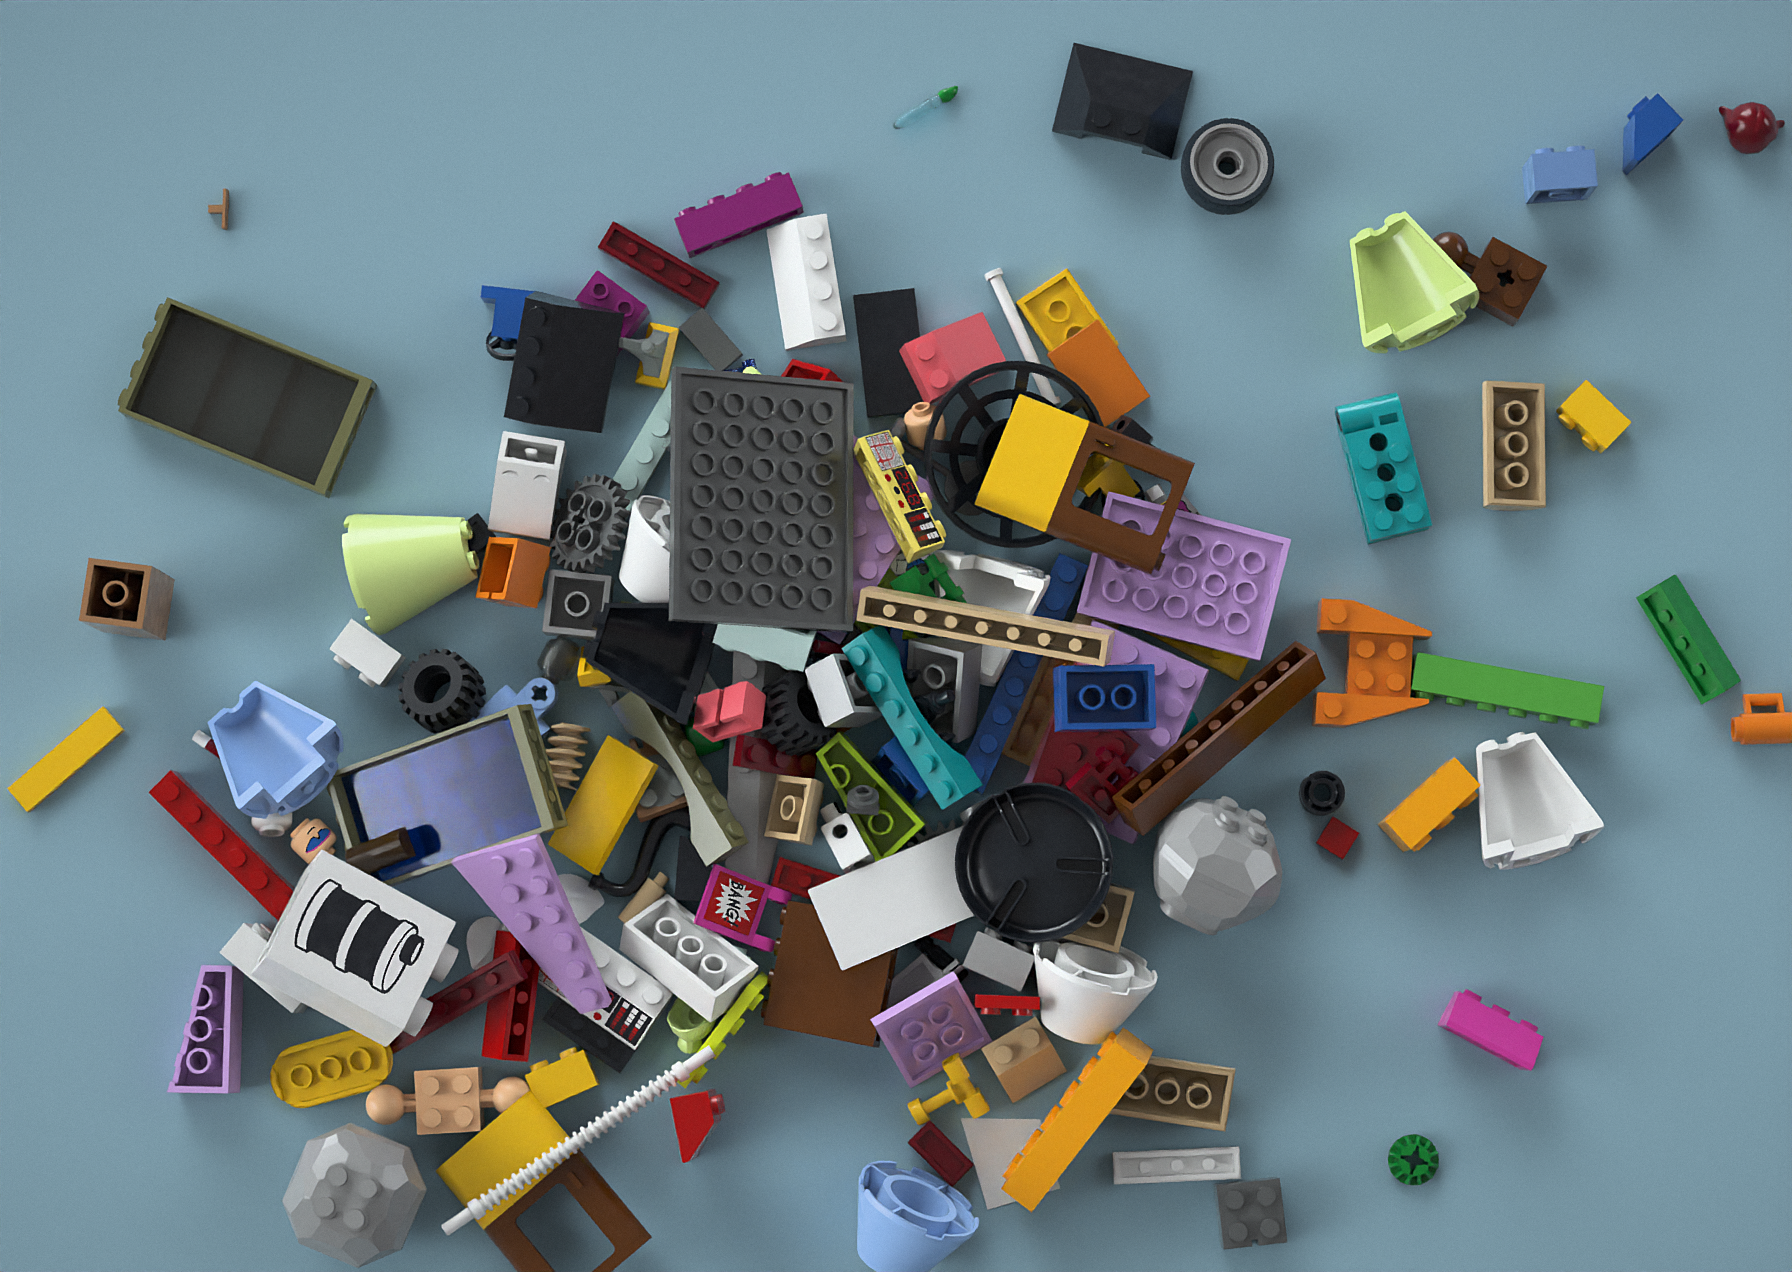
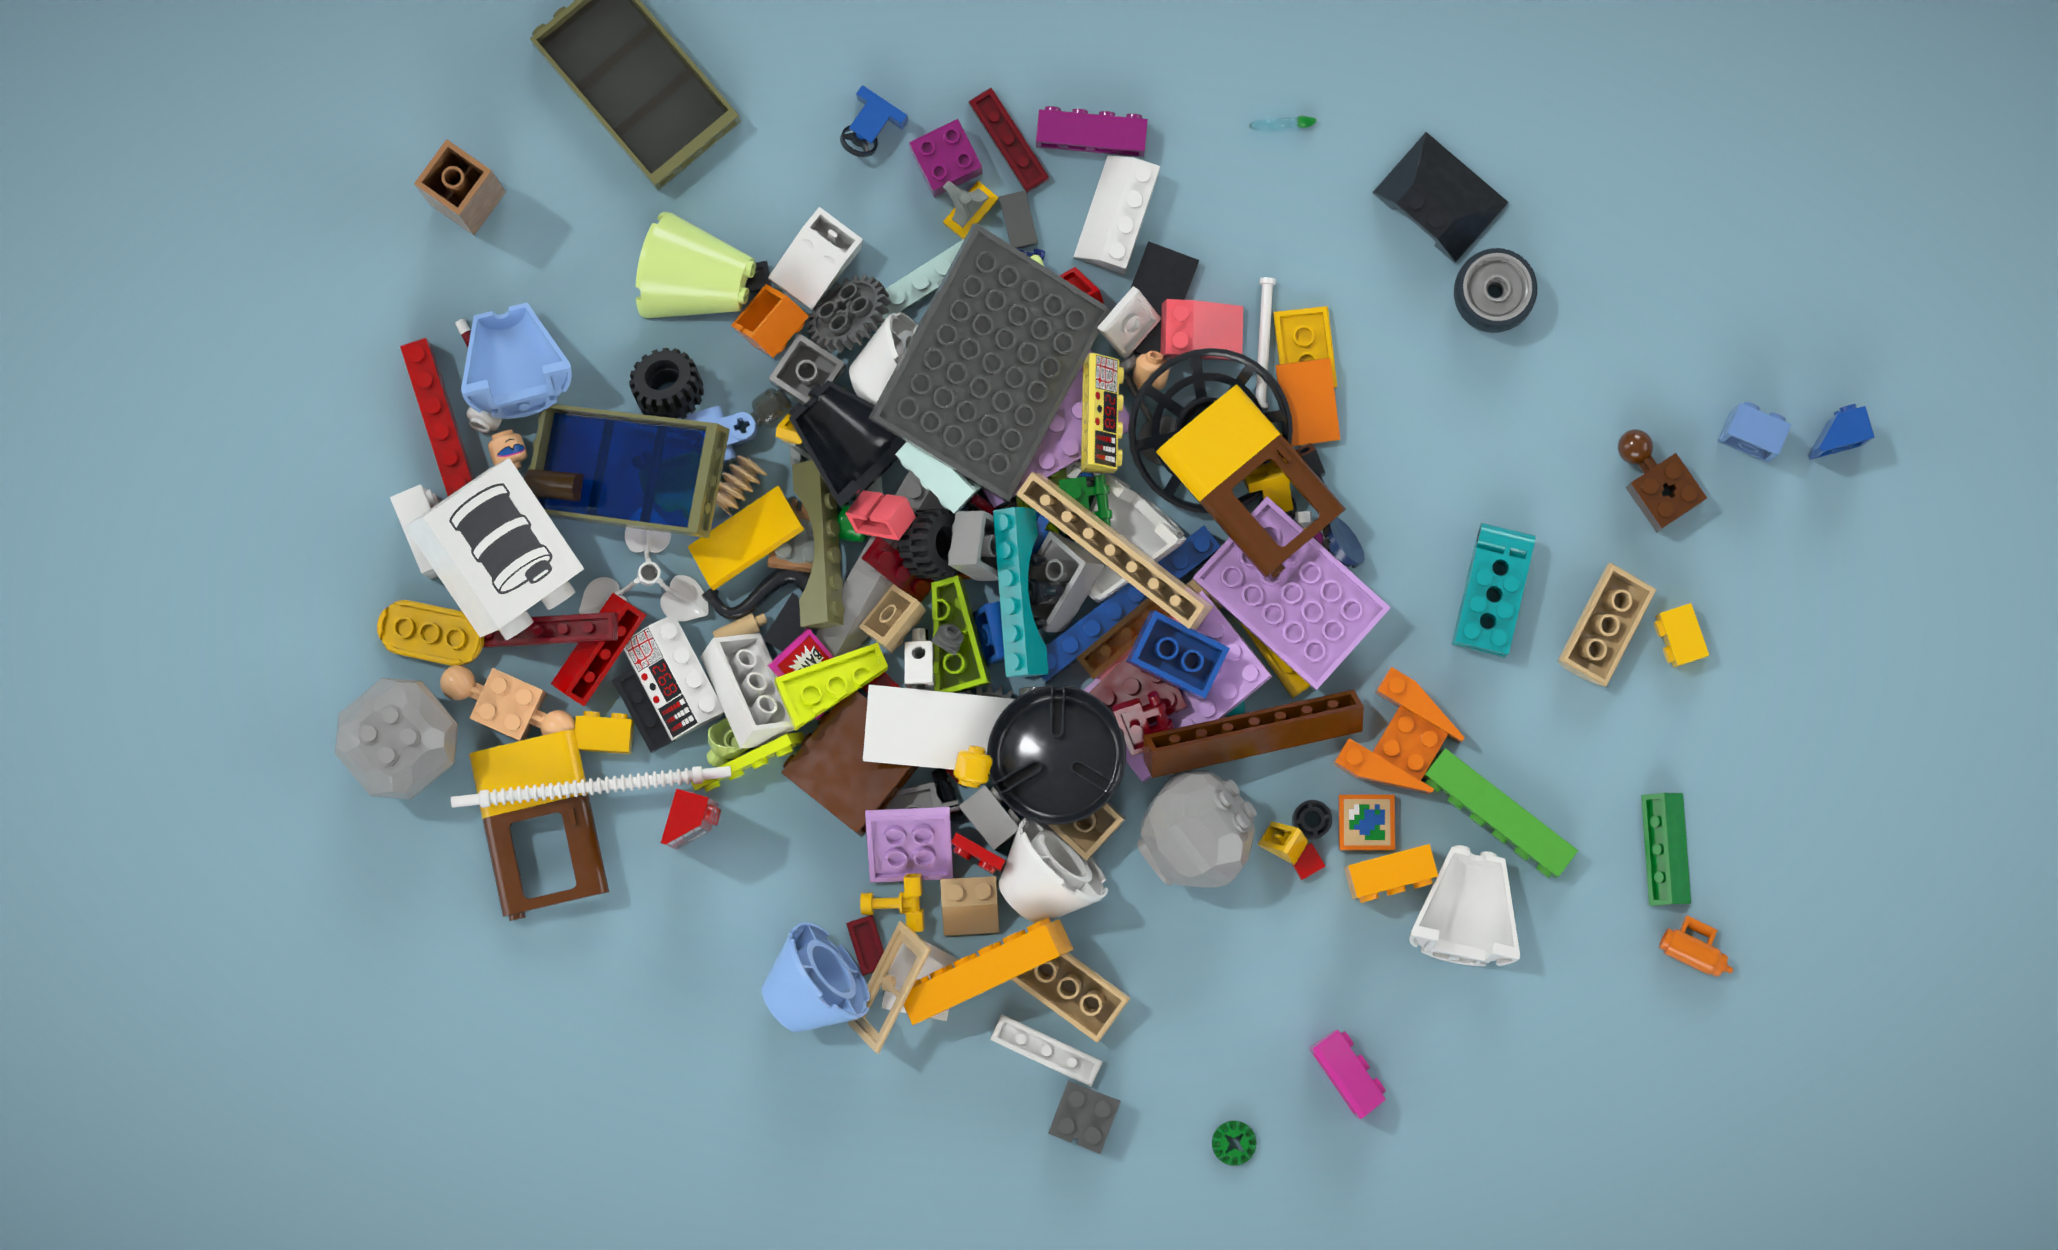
camera: 25 degrees right, 0 degrees up
(66, 759) = (350, 288): yellow tile -> none
(212, 1035) = (352, 559): lavender wedge -> none
(366, 653) = (624, 326): white brick -> none
(530, 901) = (649, 582): lavender wing -> none
(563, 363) = (893, 178): black slope -> none
(761, 912) = (824, 684): none -> neon yellow wing
(878, 387) = (1129, 323): none -> white tile
(955, 918) = (973, 766): none -> yellow head
(971, 1125) = (901, 935): none -> tan door
(1210, 499) = (1344, 543): none -> dark blue tile
(1304, 830) = (1284, 841): none -> yellow slope
(1377, 767) = (1366, 822): none -> tile
(1406, 286) = (1586, 457): yellowish green cone -> none
(1750, 127) = (1928, 471): dark red hair -> none

